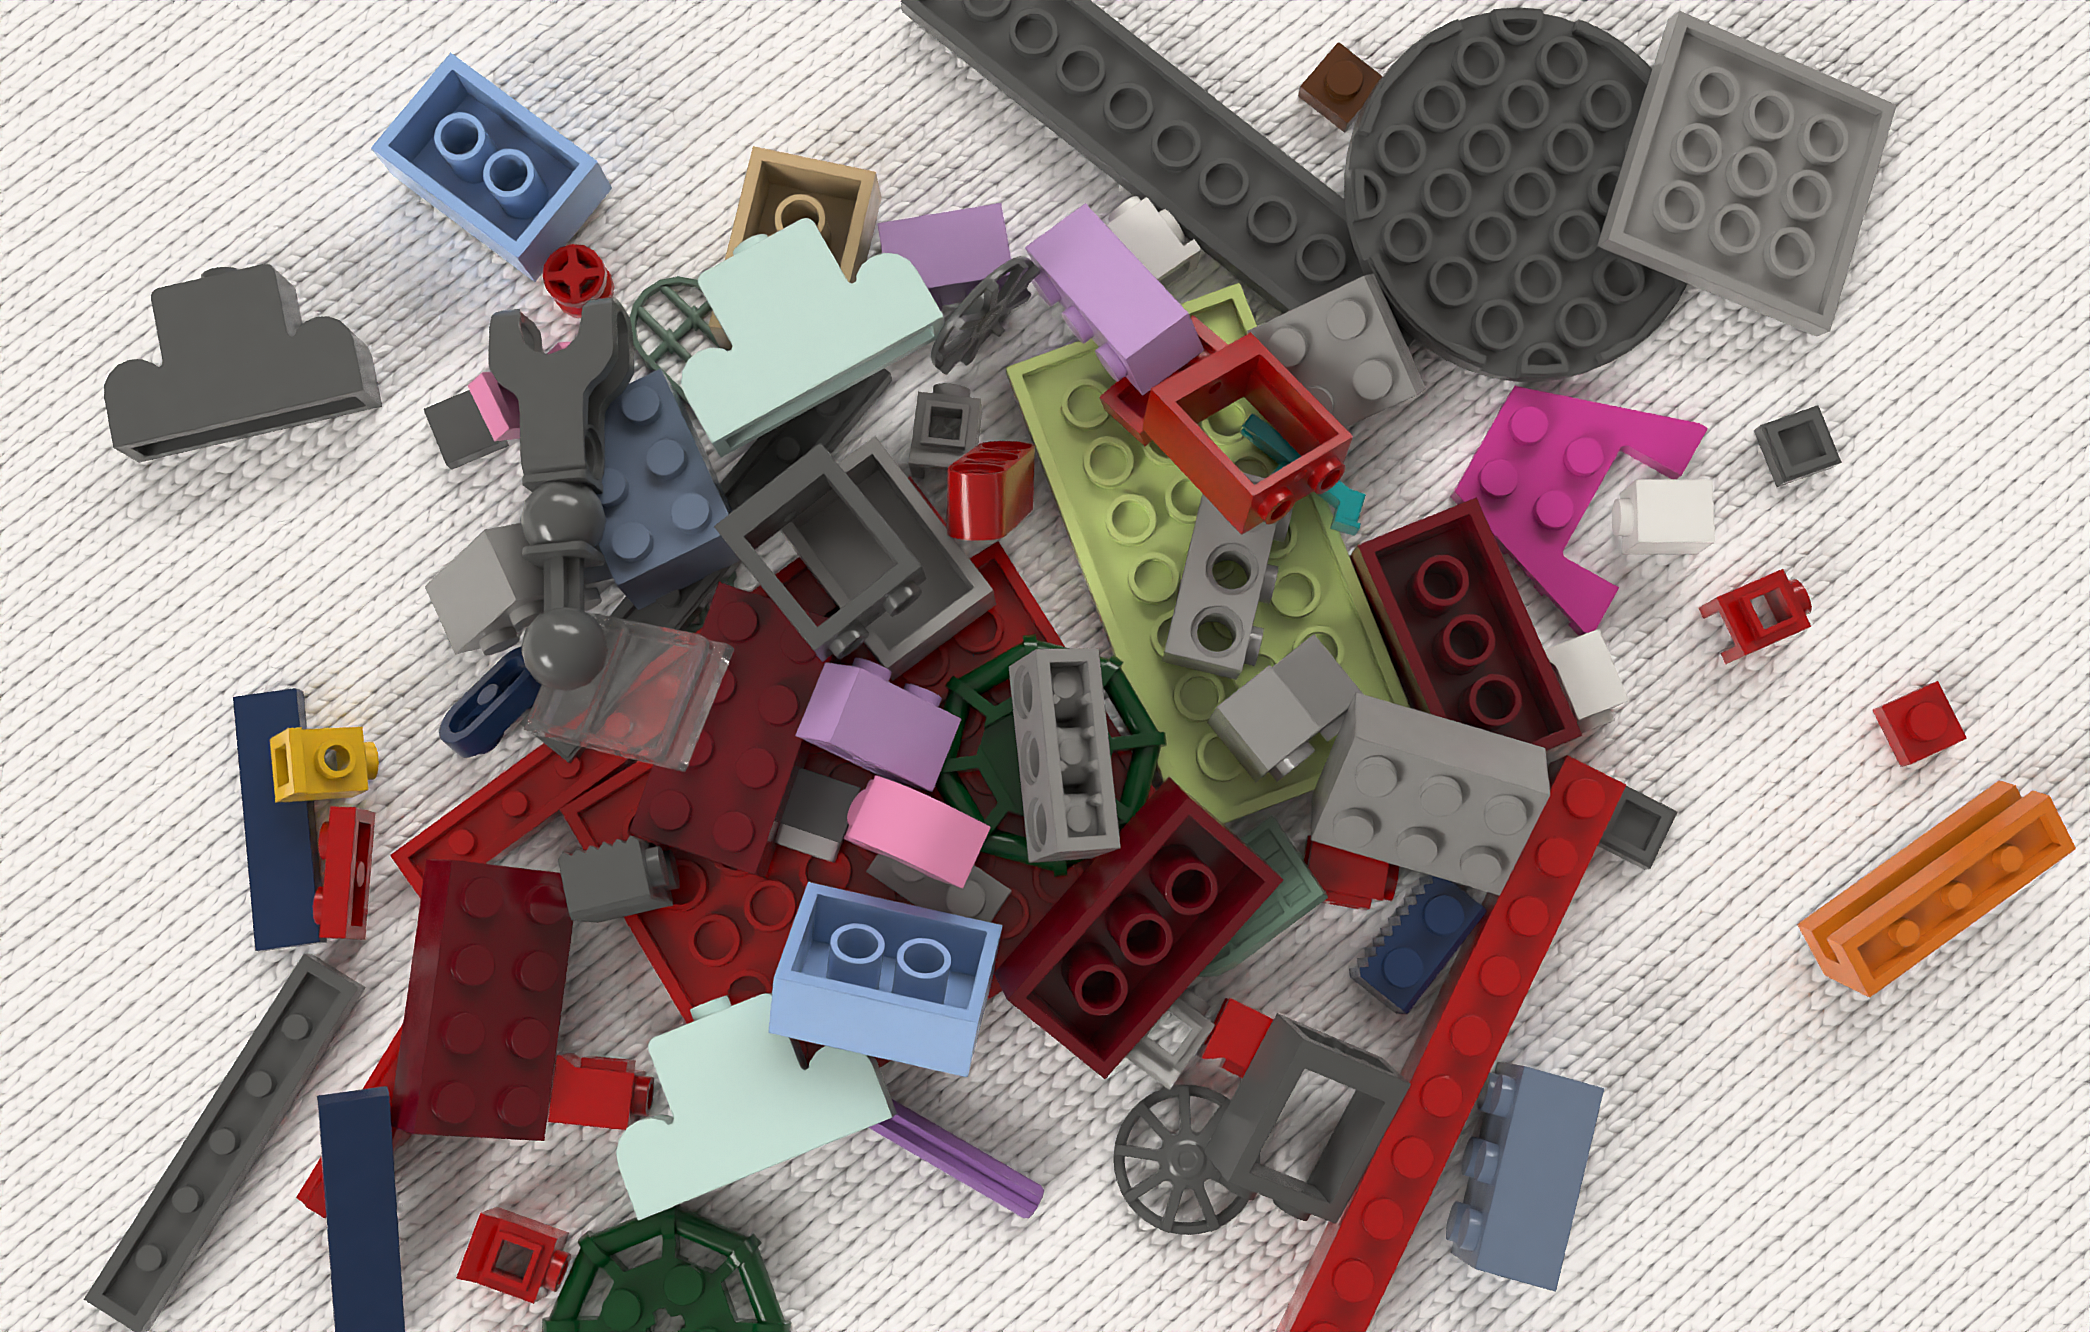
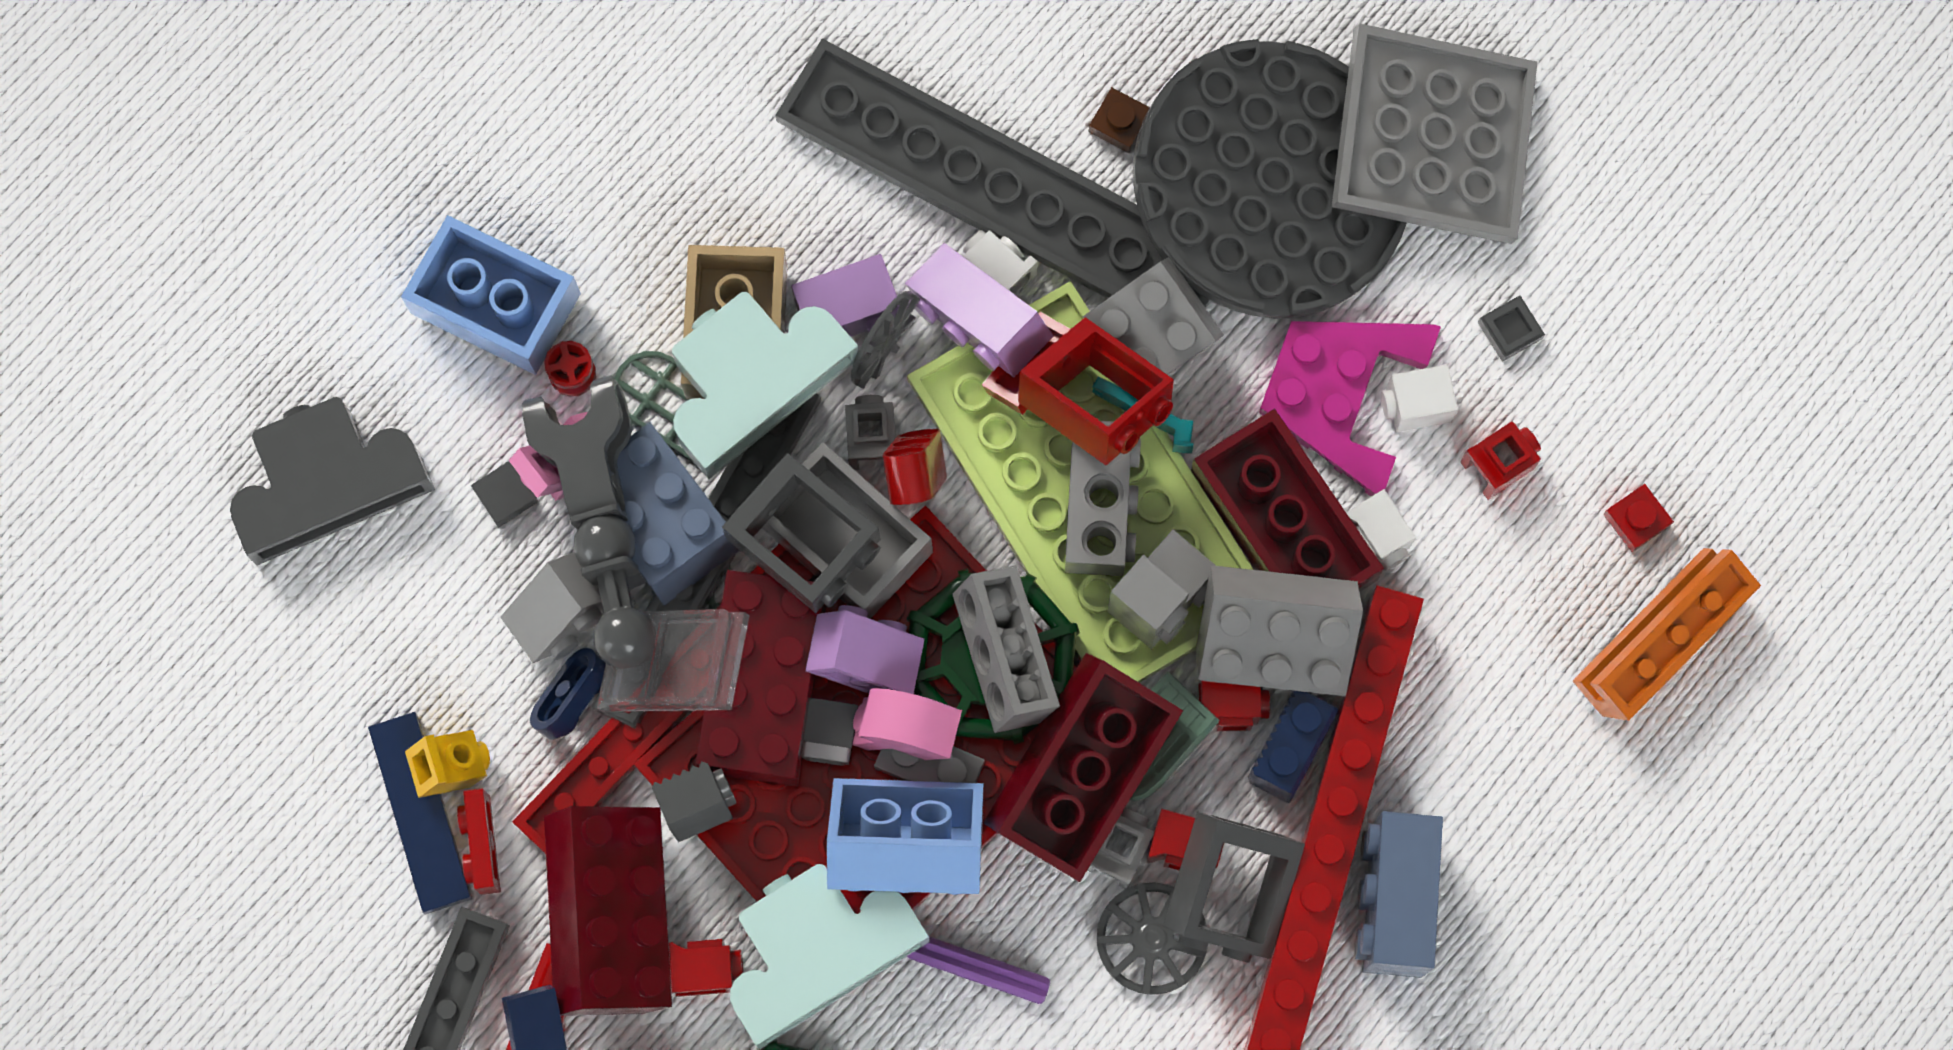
camera: 10 degrees left, 5 degrees down
(1637, 828) = (1439, 632): dark grey tile -> none

